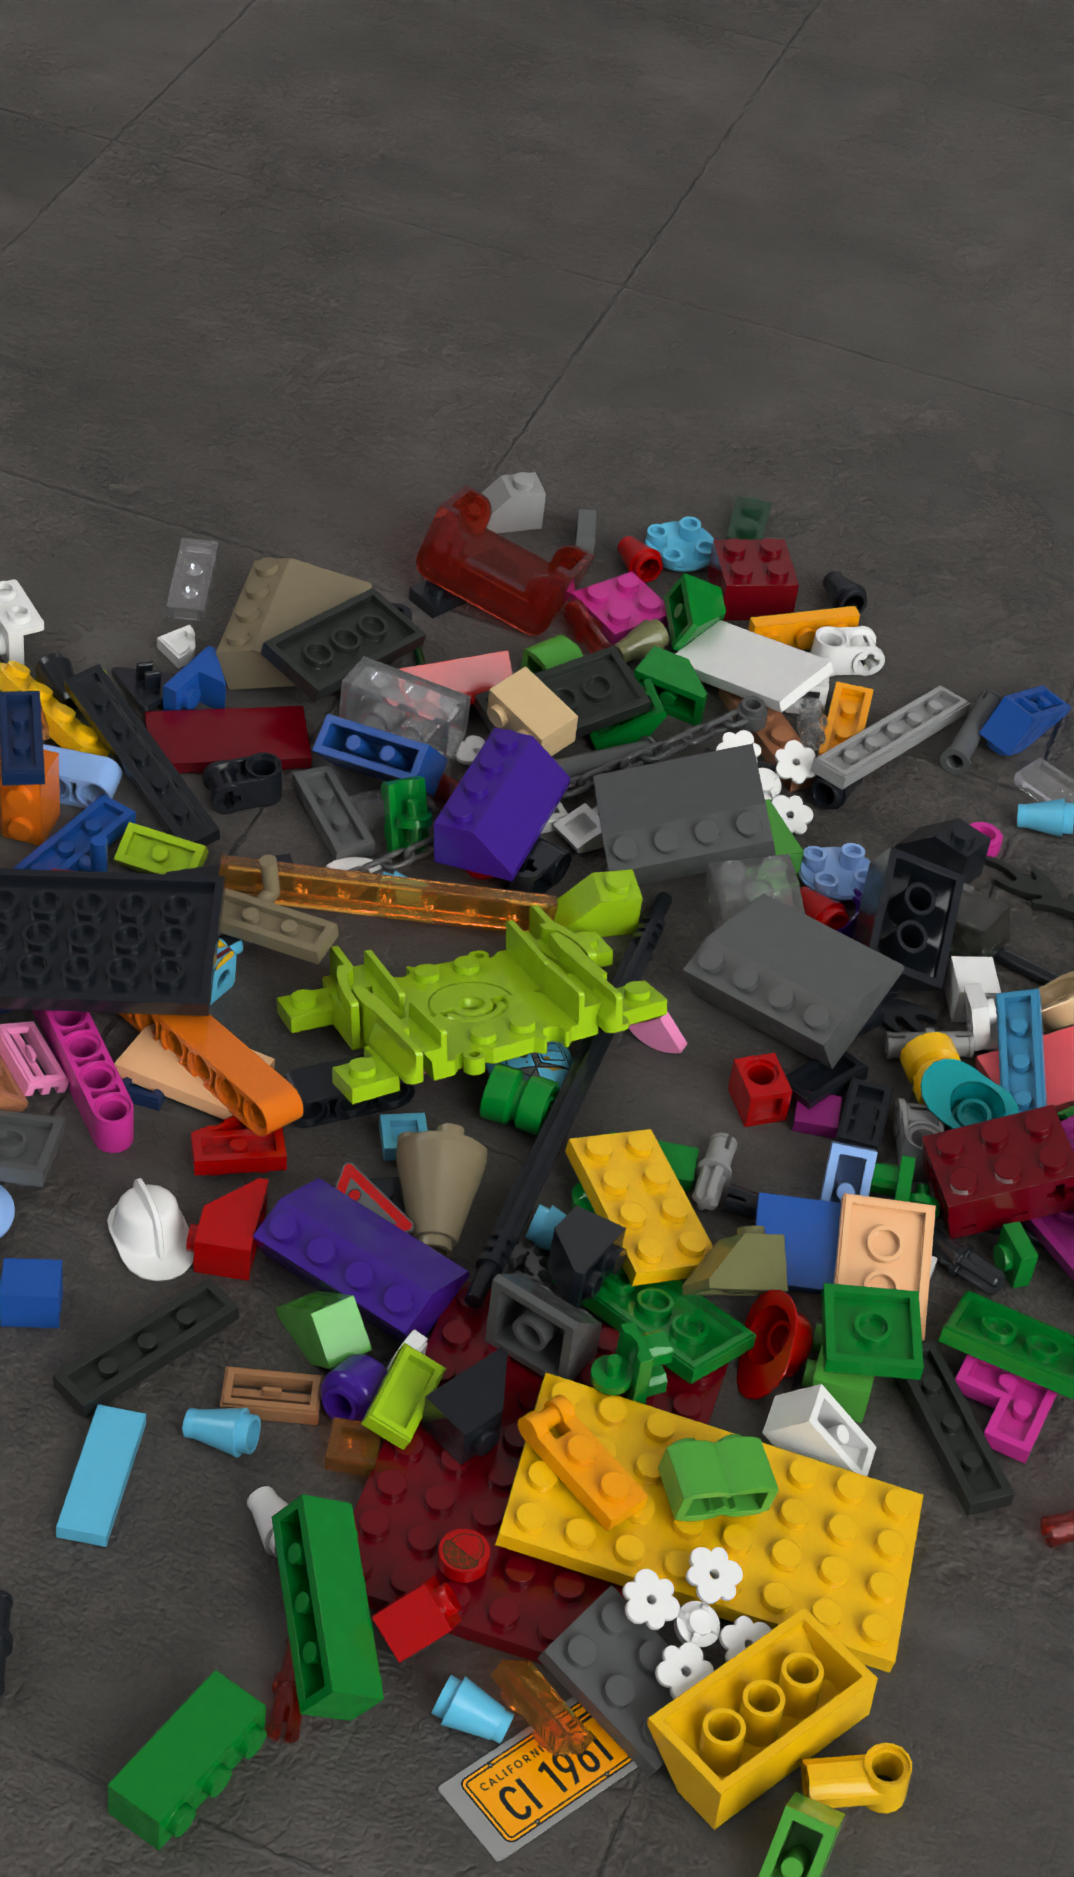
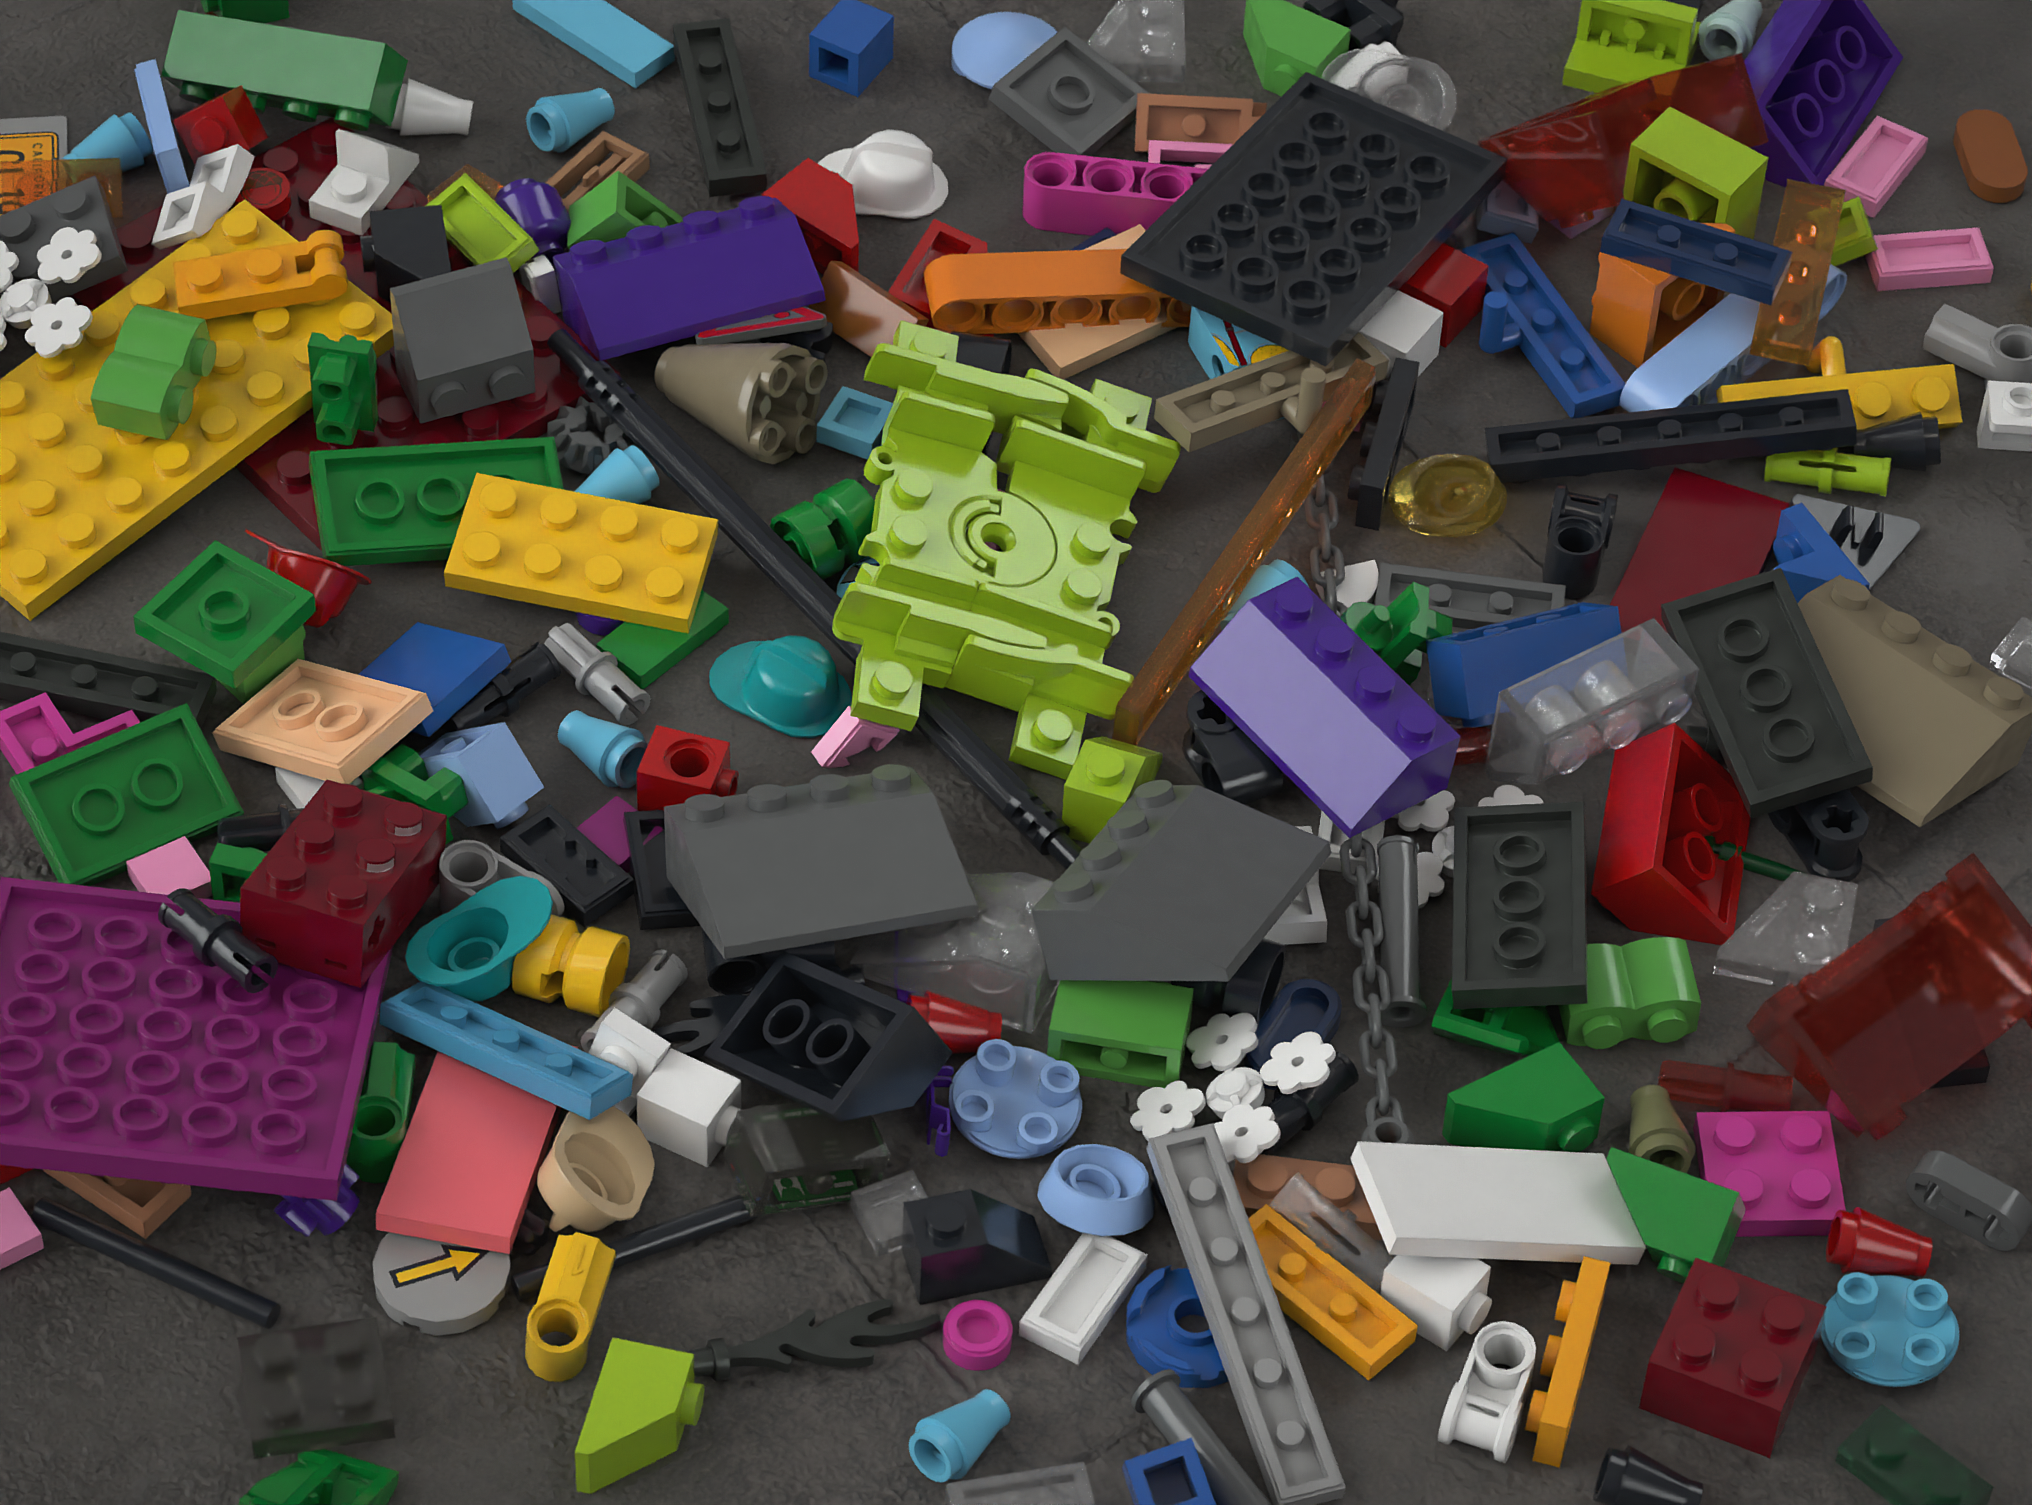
camera: 125 degrees right, 5 degrees up
(157, 852) = (1480, 402): lime plate -> none
(178, 645) = (1935, 607): white tile -> none
(252, 836) = (1447, 496): none -> clear yellow hat
(307, 1157) = (862, 309): none -> dark orange tile
(394, 1498) = (361, 182): none -> white slope
(440, 1662) = (161, 127): none -> light blue tile
(460, 634) = (1791, 932): none -> clear wing
(508, 1574) = (211, 193): none -> white slope
(532, 709) = (1484, 818): tan brick -> none
(584, 1254) = (531, 428): black slope -> none
(640, 1090) = (782, 684): none -> teal piece
(741, 1266) = (409, 567): olive slope -> none
(767, 1137) = (604, 747): none -> medium azure cone
(818, 1428) = (157, 547): white slope -> none
(866, 818) = (1097, 1191): none -> light blue hat
(905, 784) = (1158, 1339): none -> blue tile
(914, 810) = (1082, 1296): none -> white tile
(1040, 1301) = (169, 869): none -> bright pink tile

